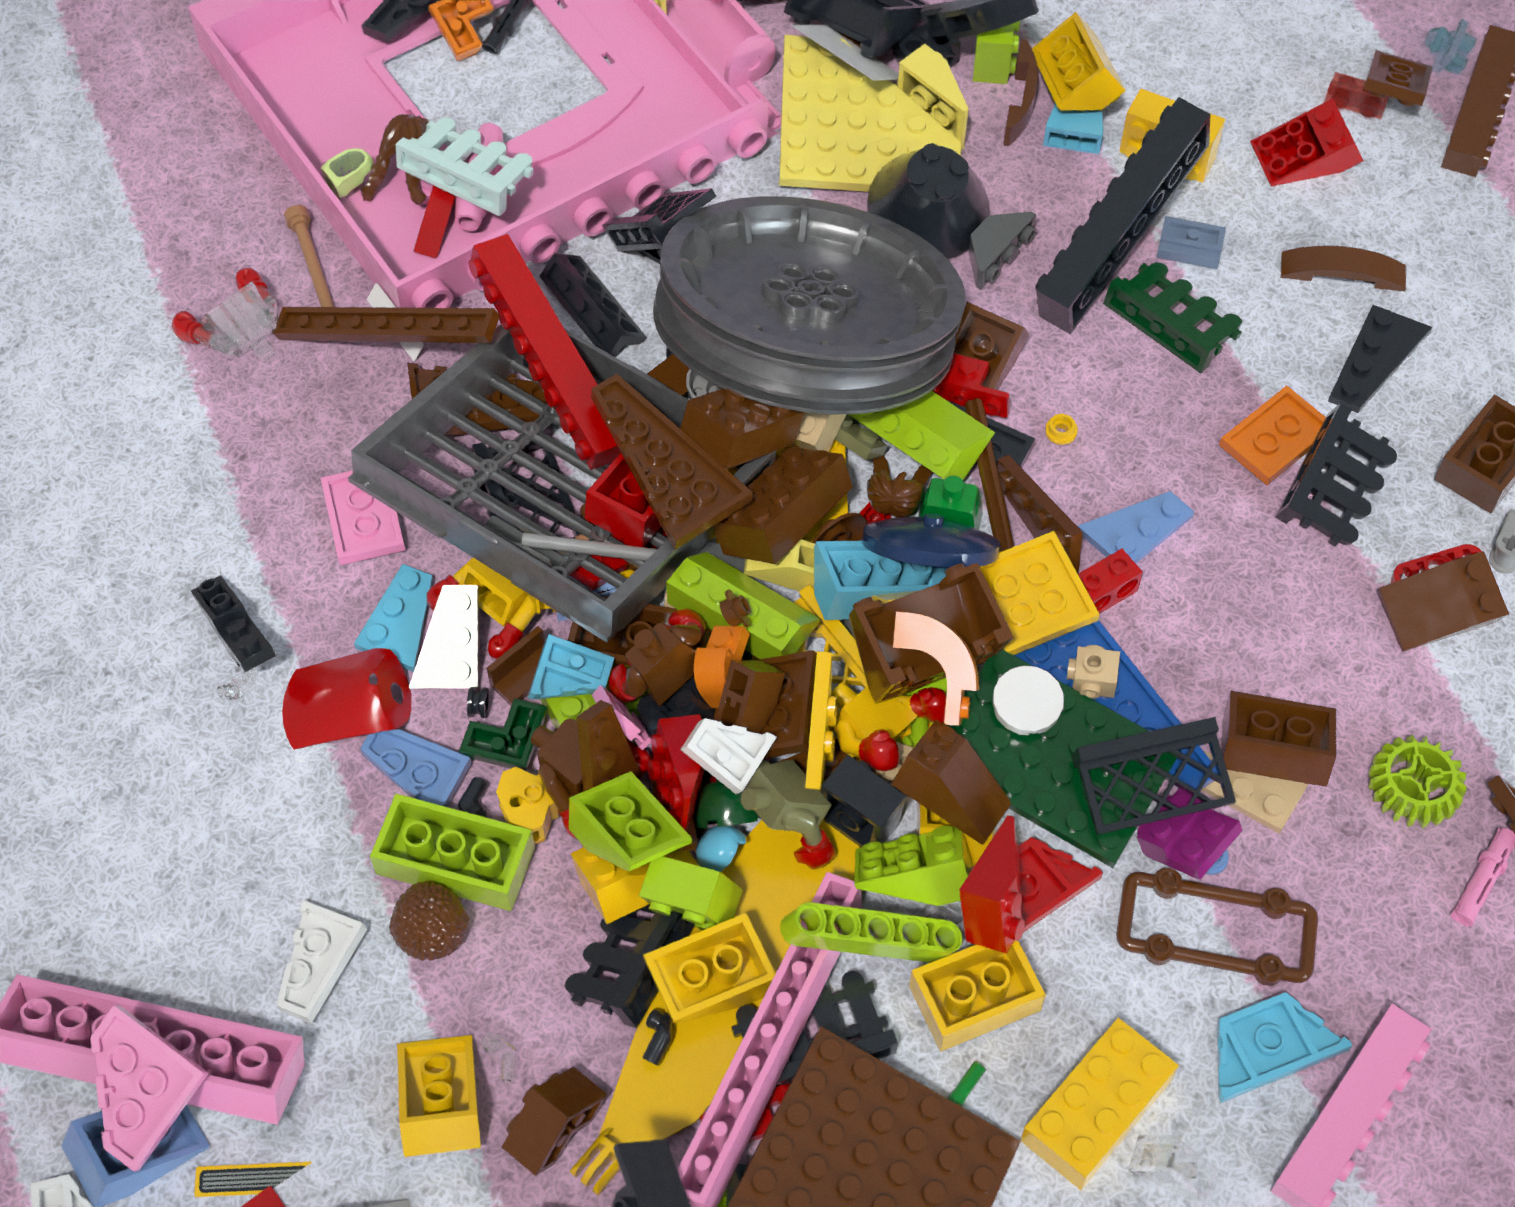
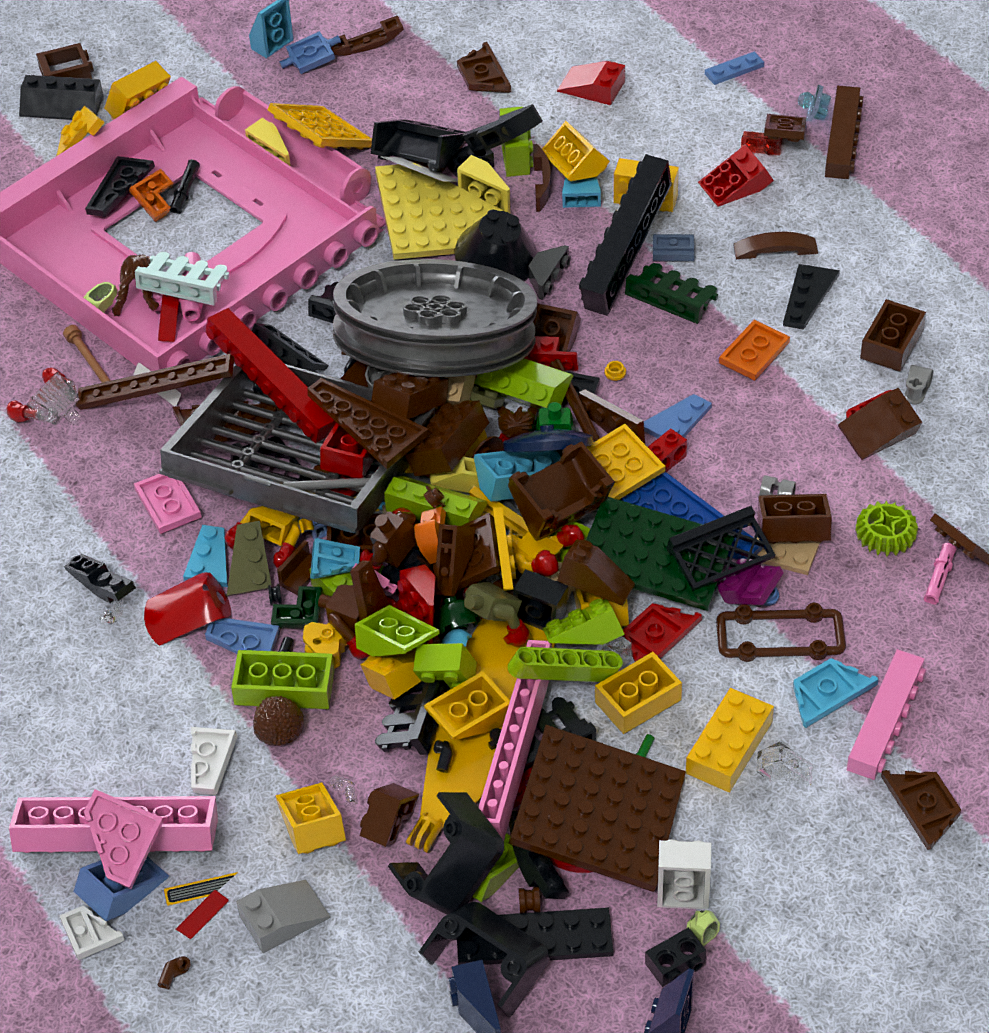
camera: 10 degrees left, 10 degrees down
(651, 224) = (319, 291): black fence -> none
(727, 751) = (449, 577): white wing -> none
(949, 649) = (566, 490): arch -> none
(993, 893) = (637, 630): red slope -> none
(1027, 700) = (631, 521): white tile -> none
(1094, 671) = (670, 498): tan brick -> none
(1276, 681) = (770, 484): none -> light grey wheel
(1311, 479) = (792, 373): black fence -> none

